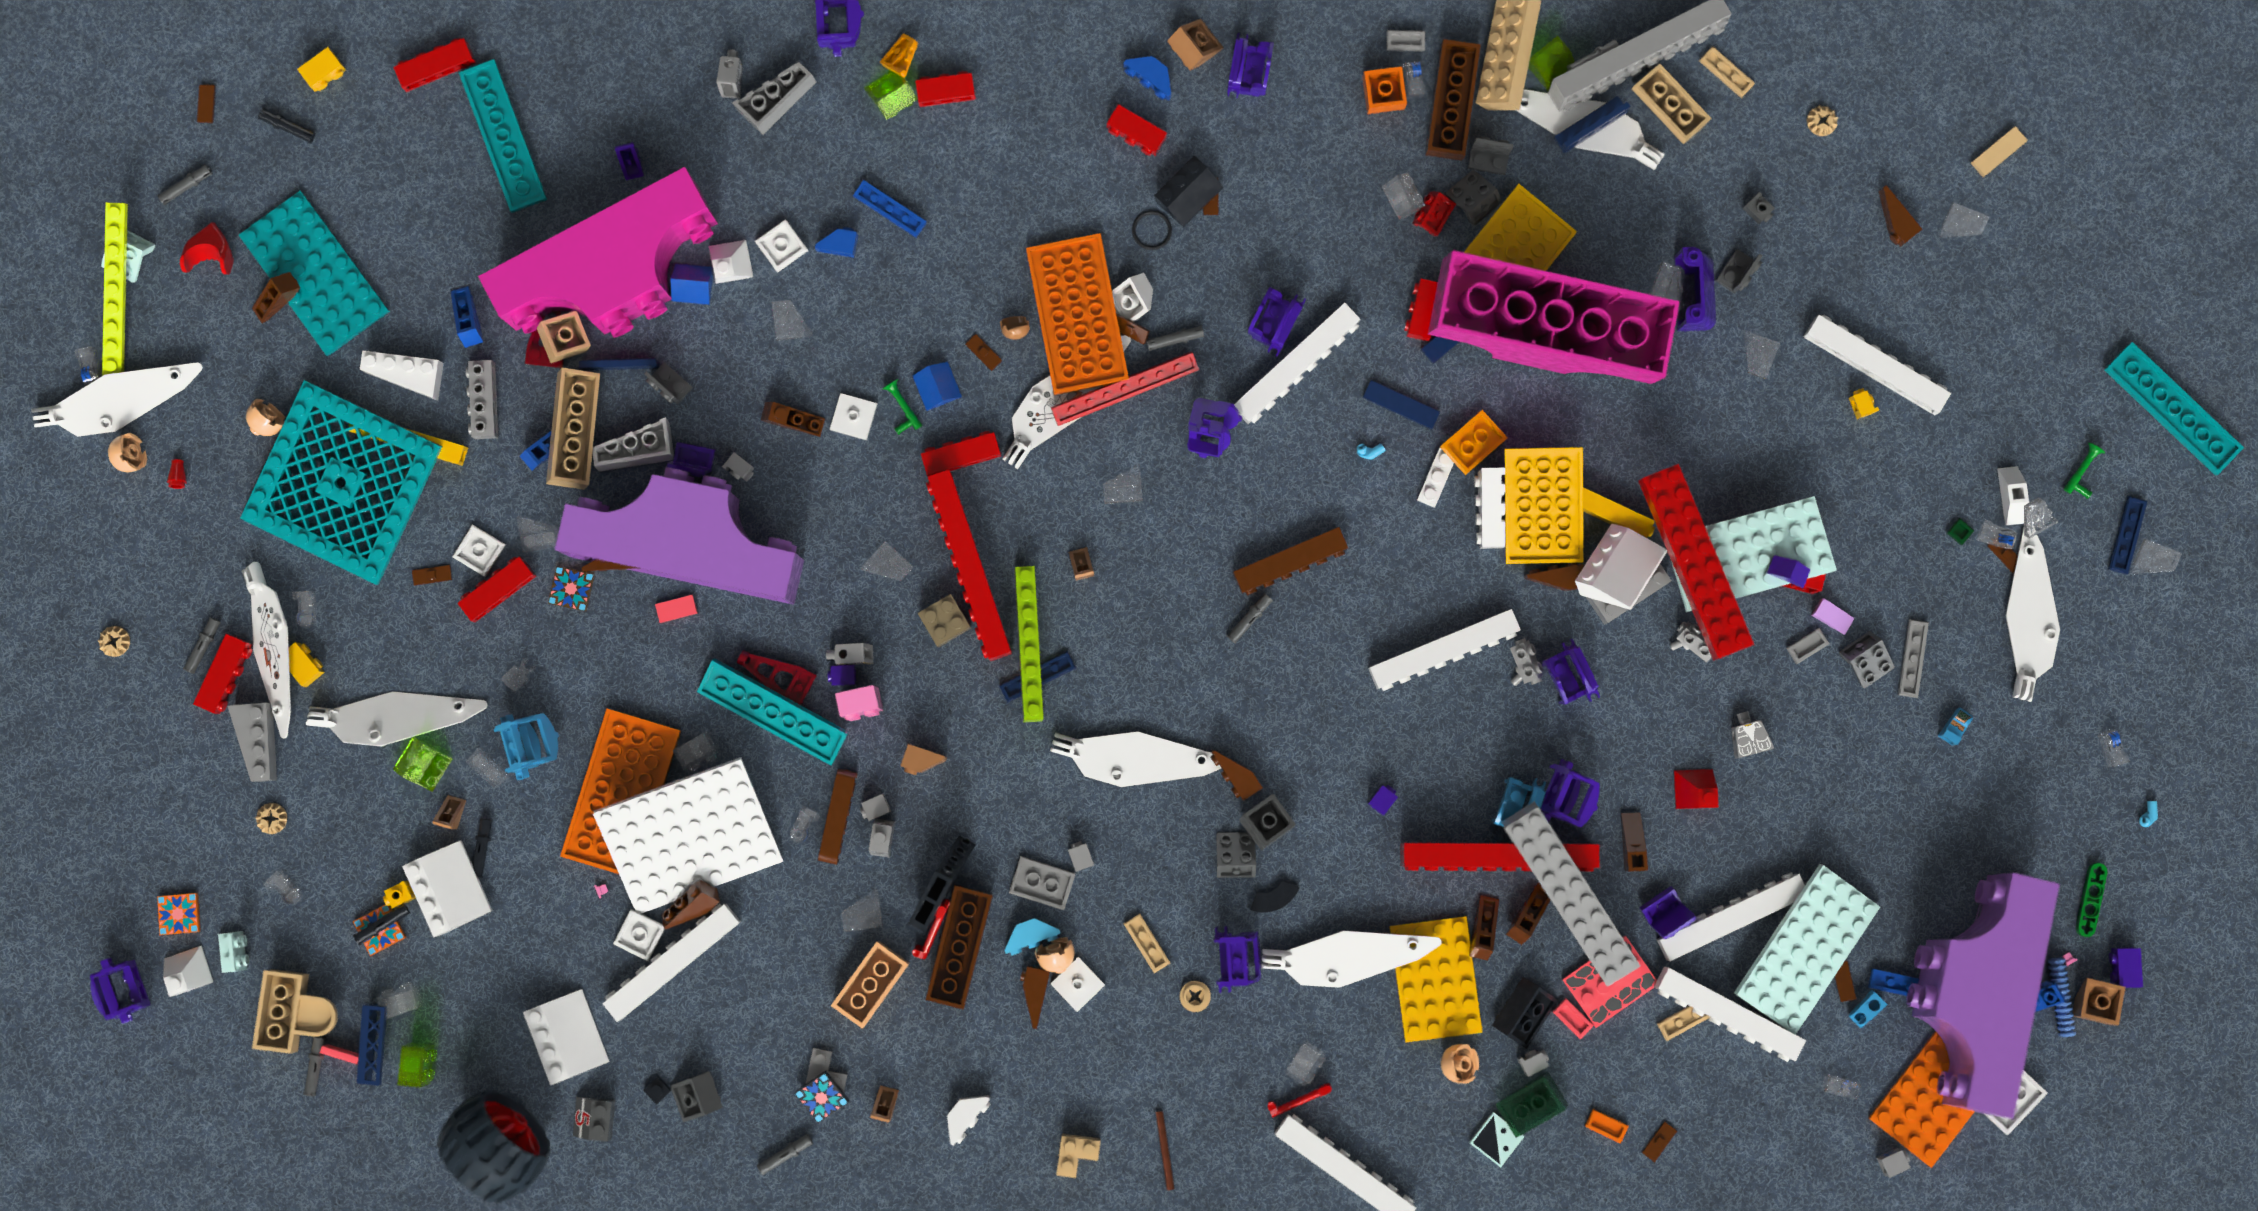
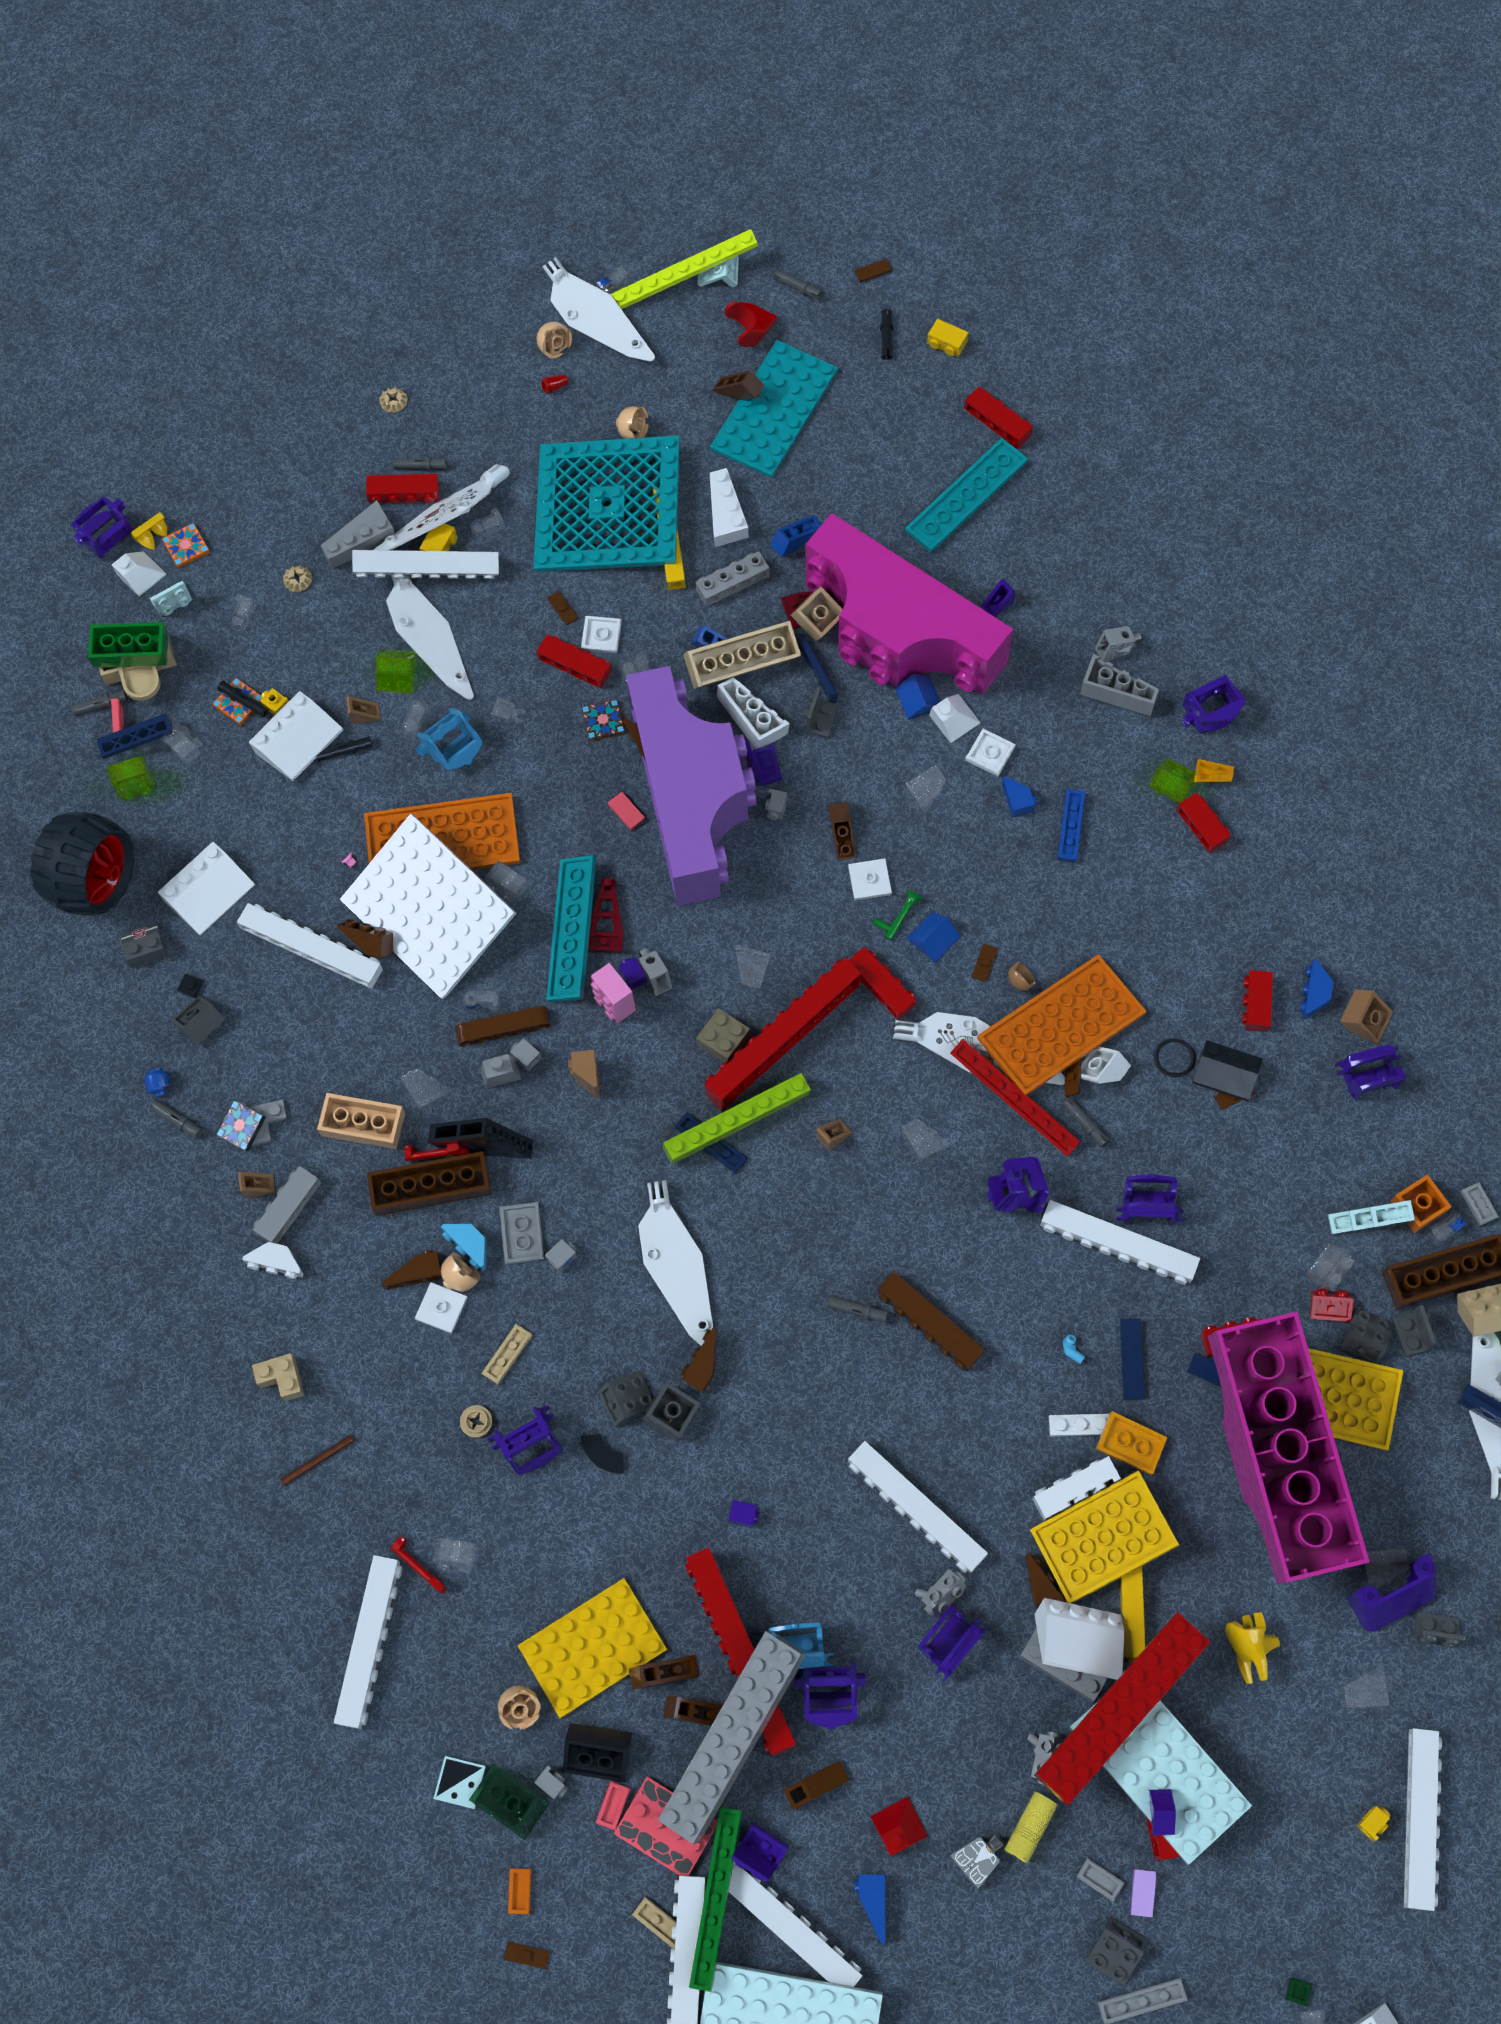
camera: 70 degrees right, 15 degrees down
(146, 951) = (143, 535): none -> yellow tile
(274, 1014) = (128, 644): none -> green brick
(323, 687) = (425, 563): none -> white brick
(639, 935) = (322, 909): white plate -> none
(741, 1157) = (157, 1082): none -> blue head
(918, 1084) = (286, 1206): none -> light grey brick
(1348, 957) = (576, 1550): white wing -> none
(1376, 138) = (1371, 1217): none -> light aqua slope
(1684, 428) = (1251, 1645): none -> yellow piece
(1690, 966) = (715, 1900): none -> green plate
(1739, 836) = (872, 1896): none -> blue slope
(1743, 681) = (1036, 1819): none -> light yellow piece

